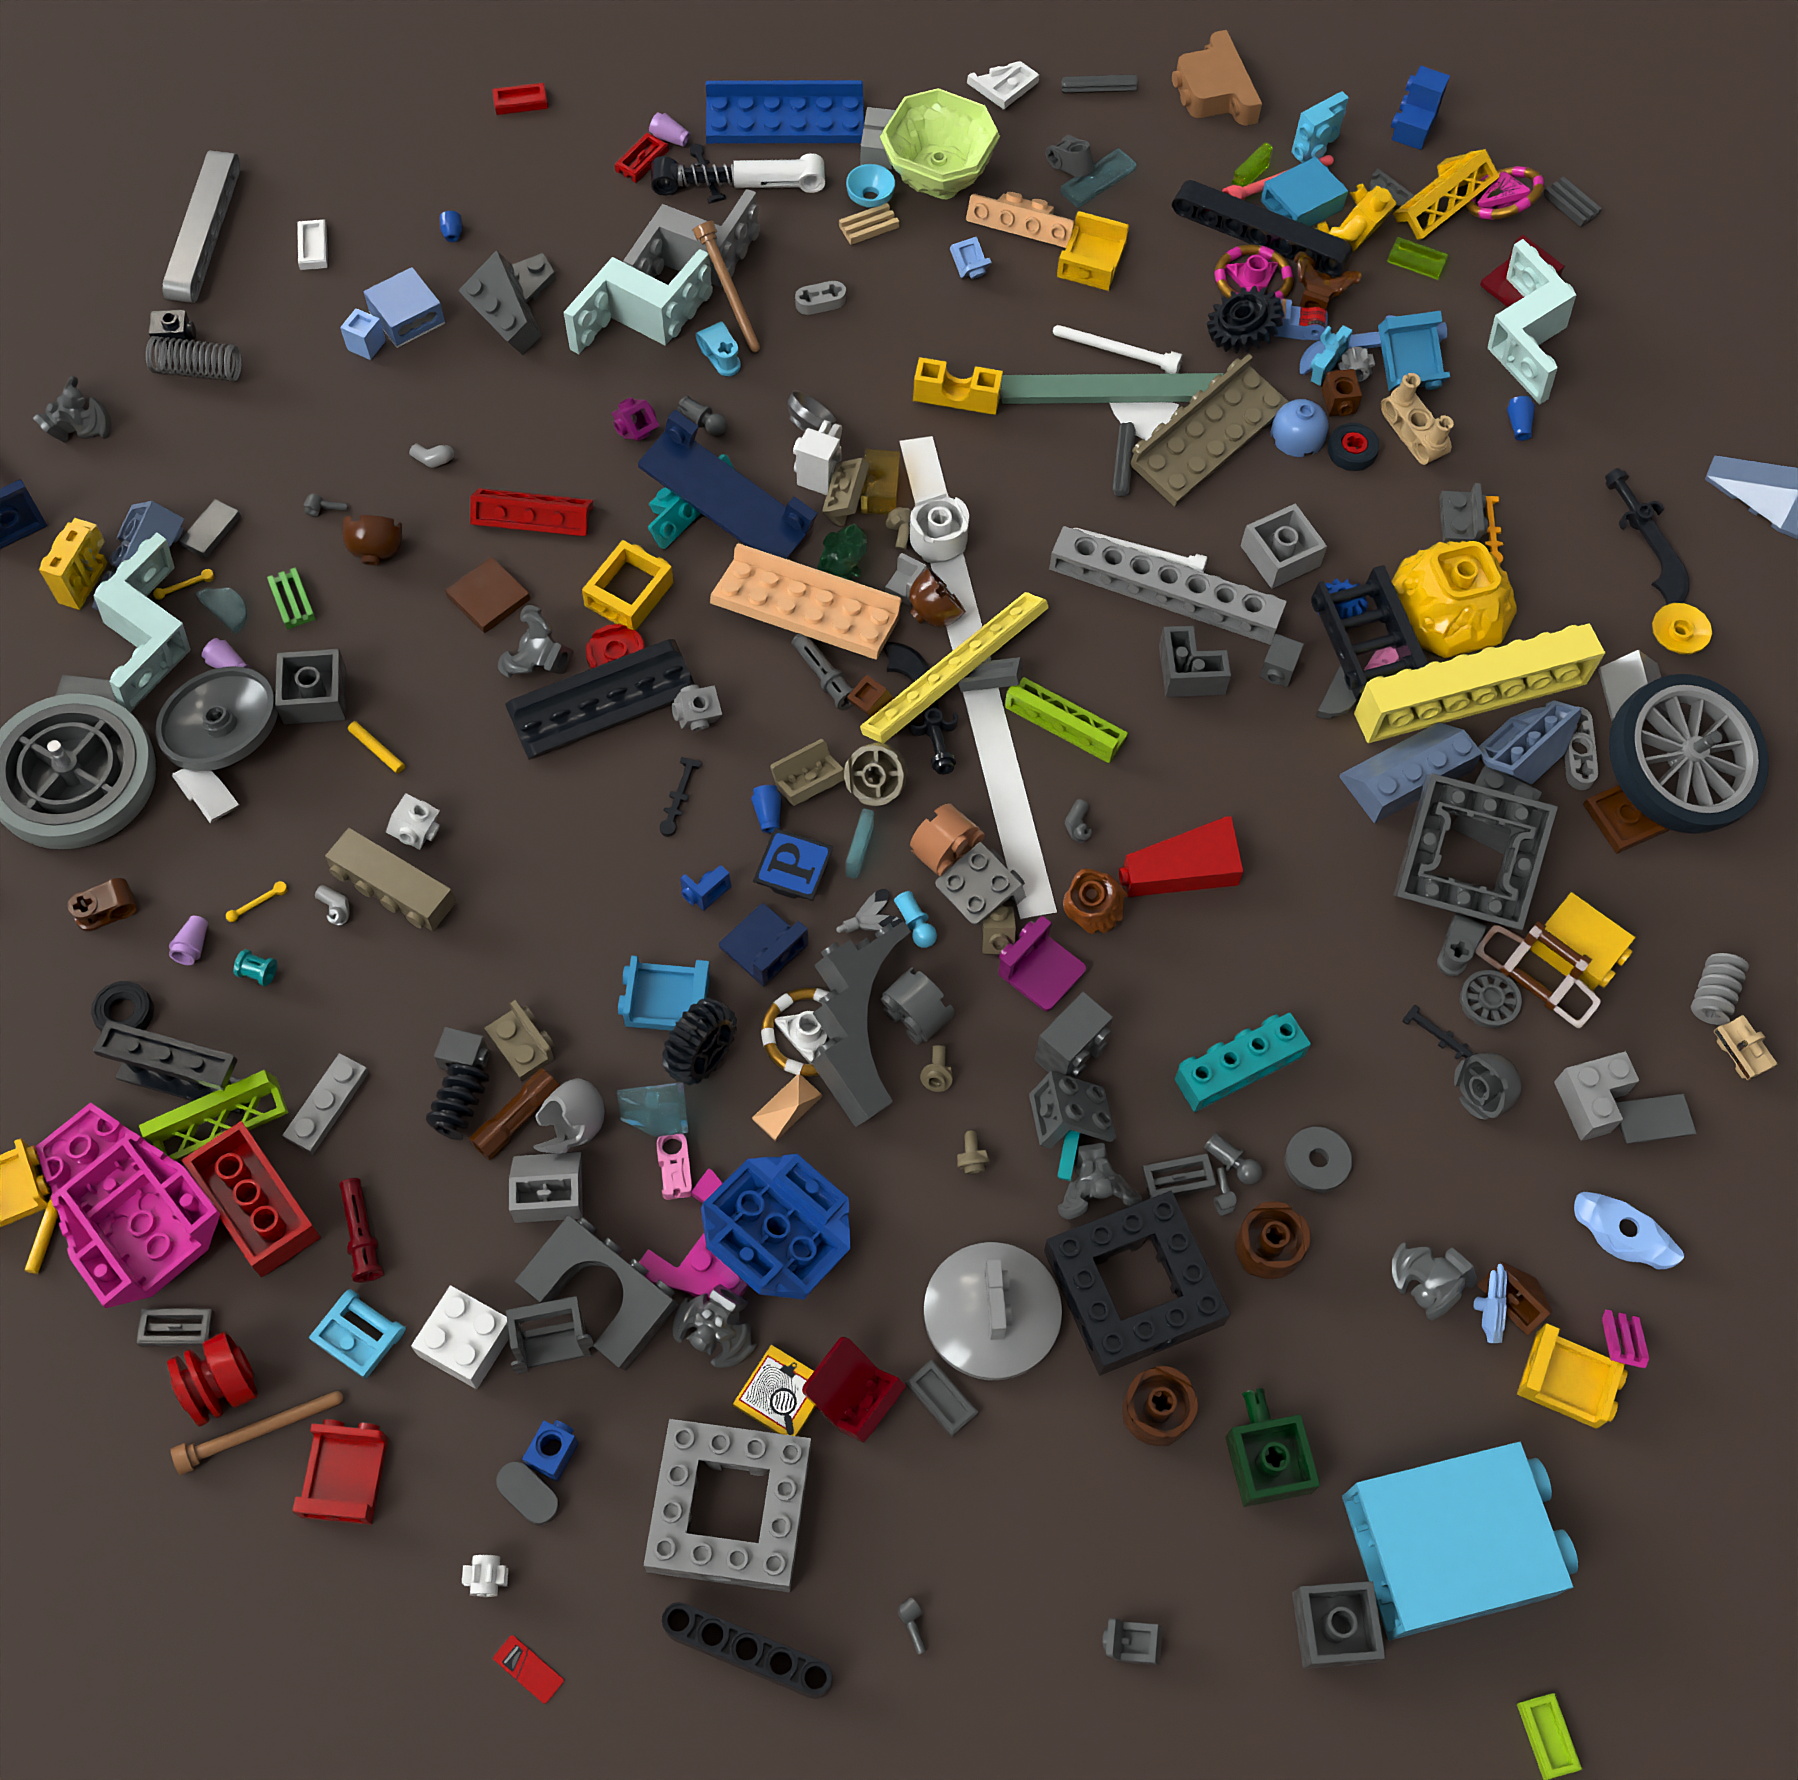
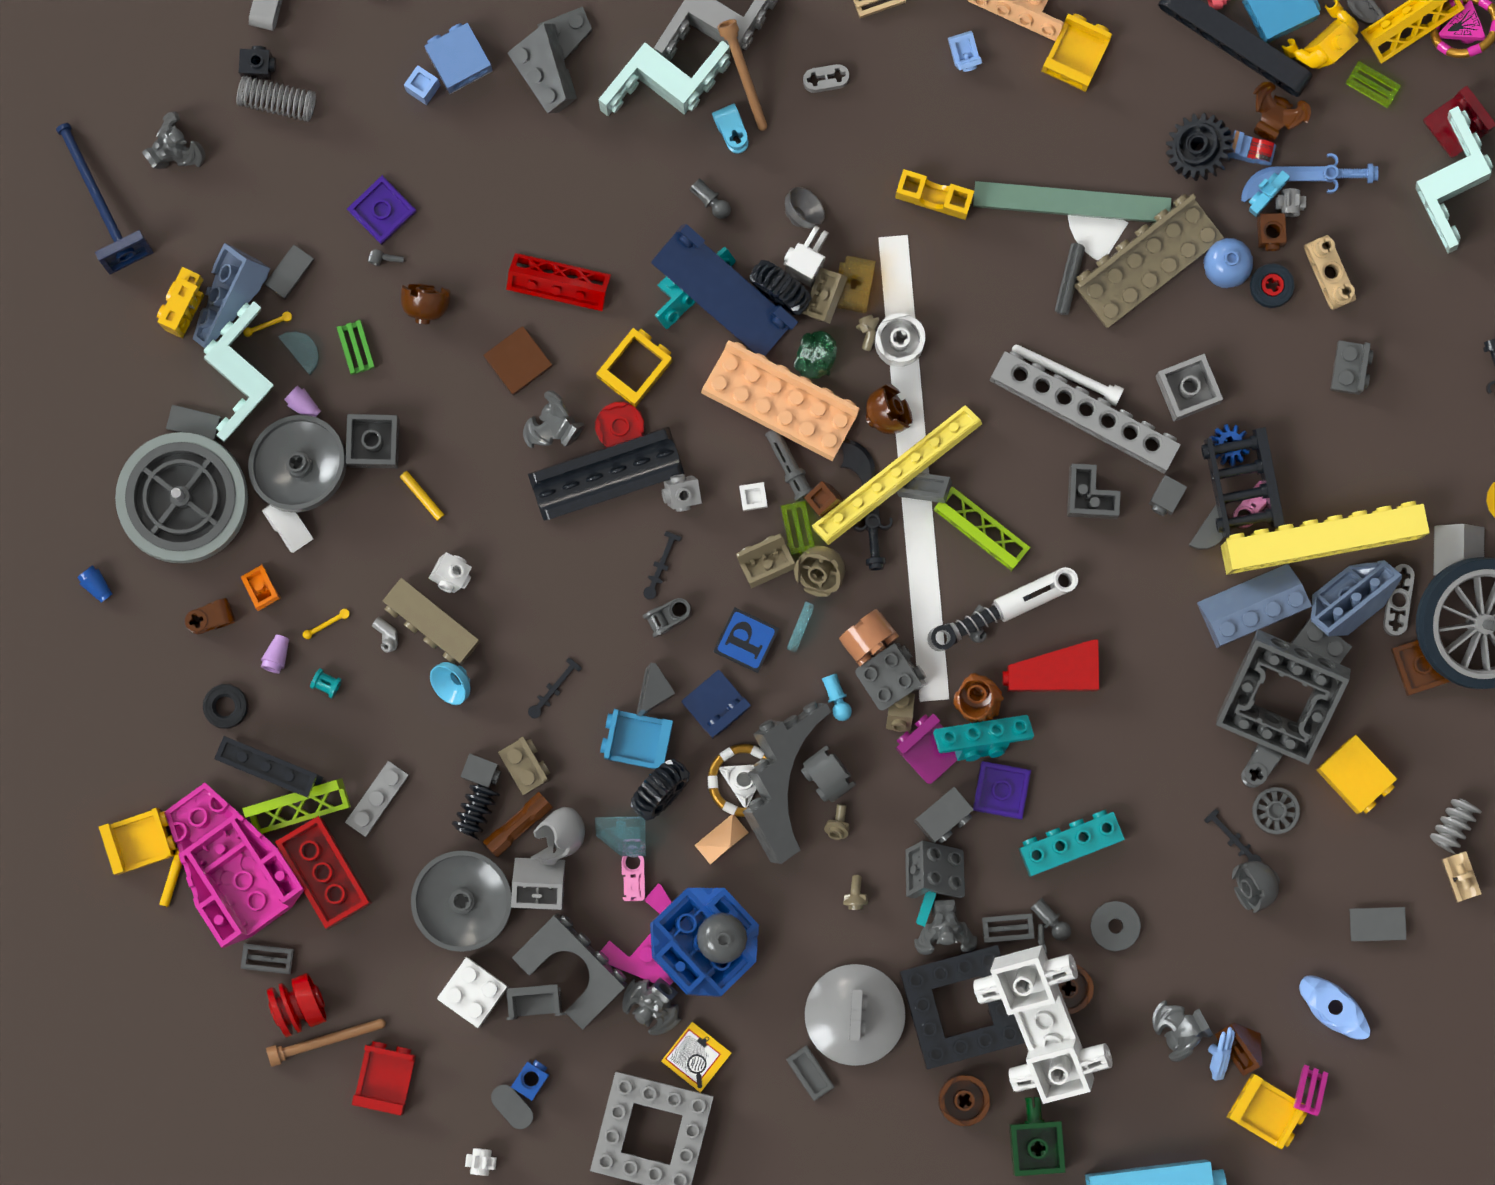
camera: 10 degrees right, 20 degrees up
(172, 867) = (260, 588): none -> orange slope
(320, 460) = (381, 210): none -> dark purple tile
(350, 1343) = (393, 987): medium azure plate -> none
(366, 1244) = (404, 915): dark red pin -> none
(411, 951) = (447, 685): none -> medium azure piece
(432, 457) = (477, 218): light grey arm -> none
(441, 1216) = (461, 901): none -> dark grey dish
(530, 977) = (535, 711): none -> black piece
(643, 419) = (652, 201): magenta brick -> none
(684, 933) = (654, 690): none -> dark grey slope
(690, 849) = (666, 617): none -> dark grey piece
(710, 887) = (679, 652): blue bracket -> none
(767, 807) = (730, 585): blue cone -> none
(785, 708) = (753, 496): none -> white plate
(789, 475) = (780, 287): none -> black gear
(800, 1214) = (722, 938): none -> dark grey cylinder
(834, 716) = (801, 549): none -> clear neon green tile
(852, 1390) = (747, 1064): dark red bracket -> none
(867, 915) = (799, 691): light grey piece -> none
(902, 580) = (865, 385): light grey panel -> none
(1109, 795) = (1005, 608): none -> piece
(1109, 943) = (983, 738): none -> teal bracket
(1141, 1010) = (1001, 790): none -> dark purple tile
(1169, 361) = (1124, 180): white piece -> none
(1252, 1282) = (1031, 992): none -> white piece
(1255, 271) = (1219, 89): dark pink piece -> none
(1412, 346) = (1342, 199): dark azure panel -> none
(1455, 597) = (1311, 469): yellow rock -> none
(1492, 530) = (1371, 409): light orange piece -> none
(1521, 416) = (1426, 270): blue cone -> none
(1551, 999) = (1323, 817): reddish brown bar -> none
(1590, 1093) = (1330, 899): light grey brick -> none

